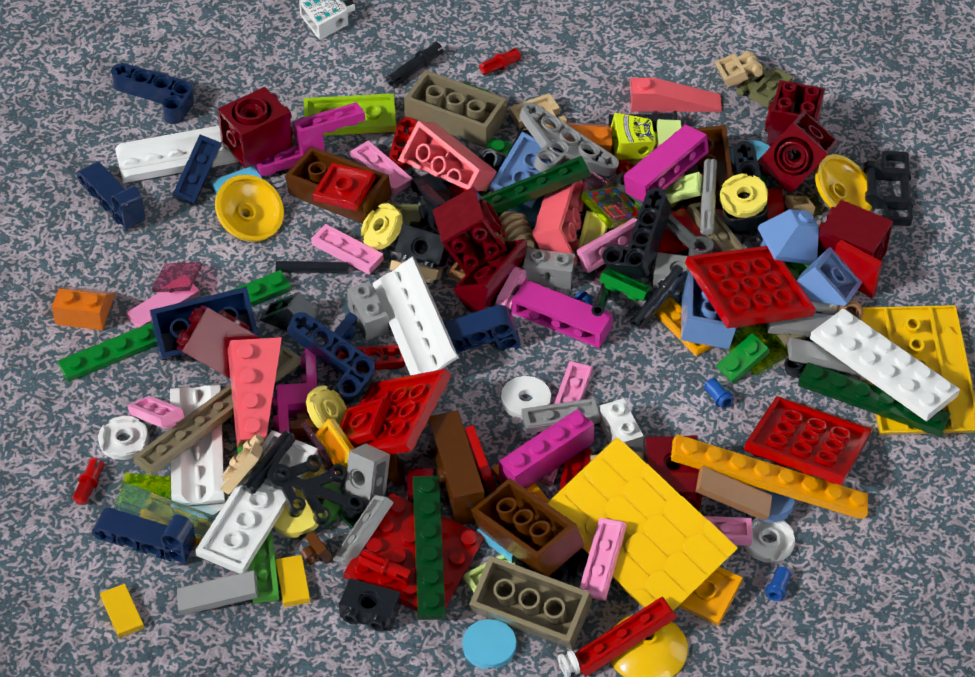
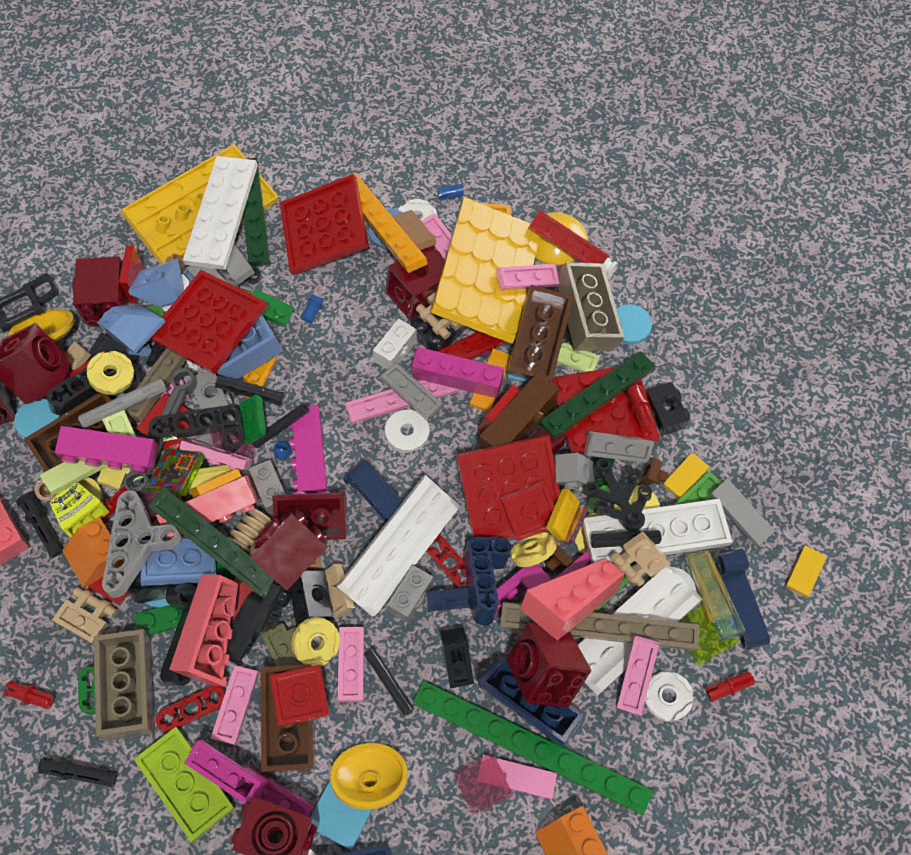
camera: 125 degrees left, 15 degrees up
(578, 224) = (215, 483): none -> light orange tile

